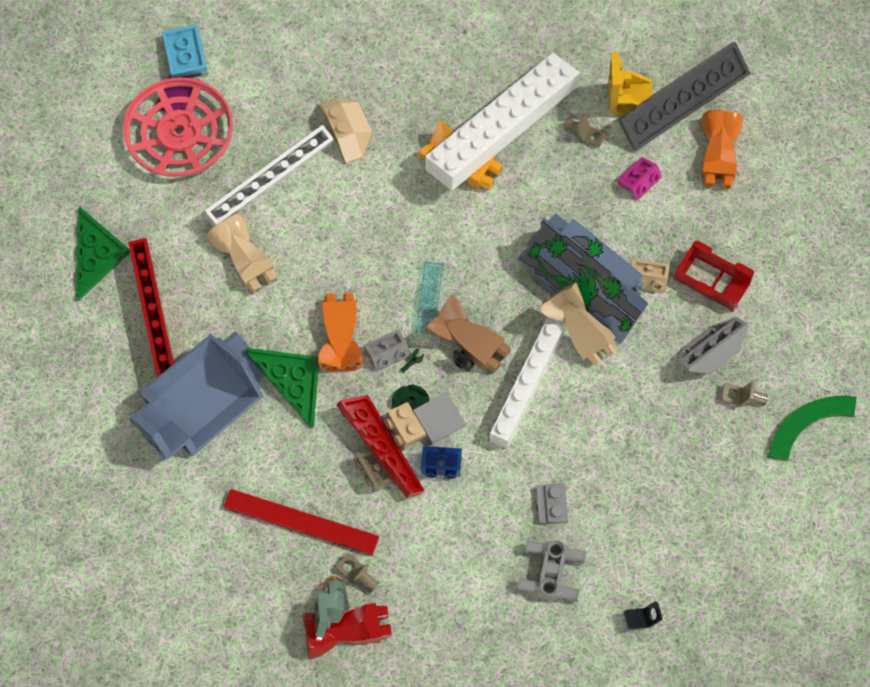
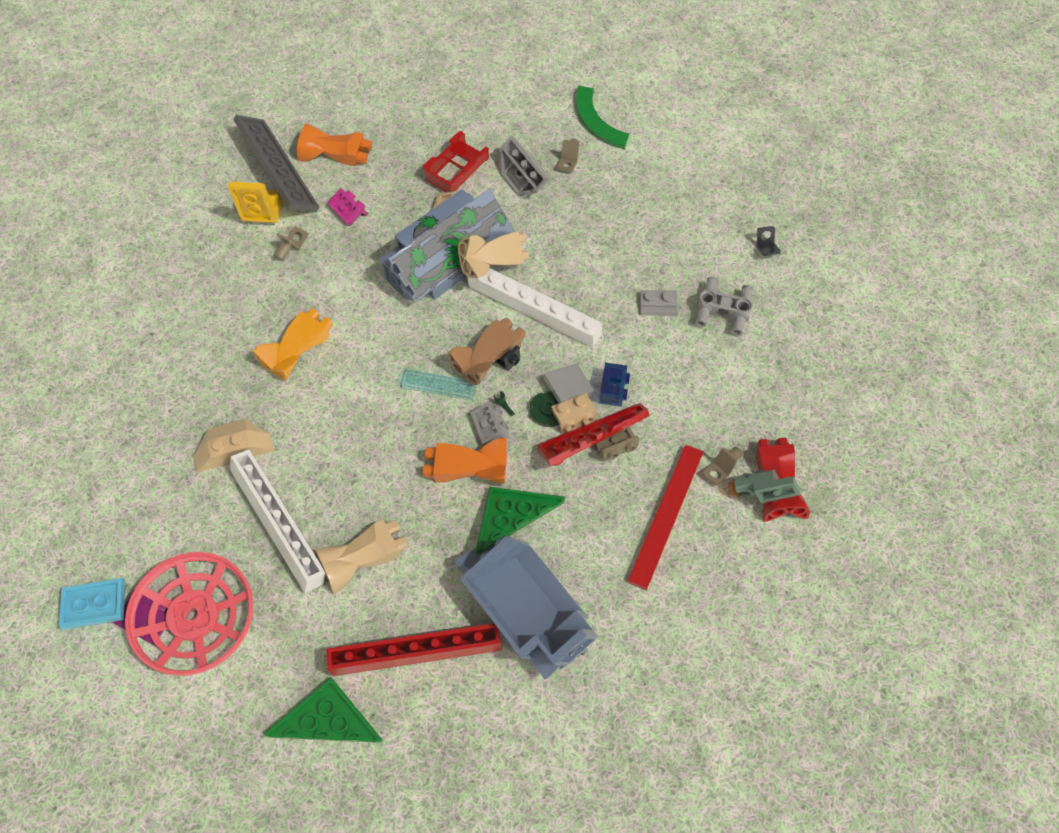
camera: 85 degrees left, 5 degrees down
(502, 121) = (269, 300): white brick -> none

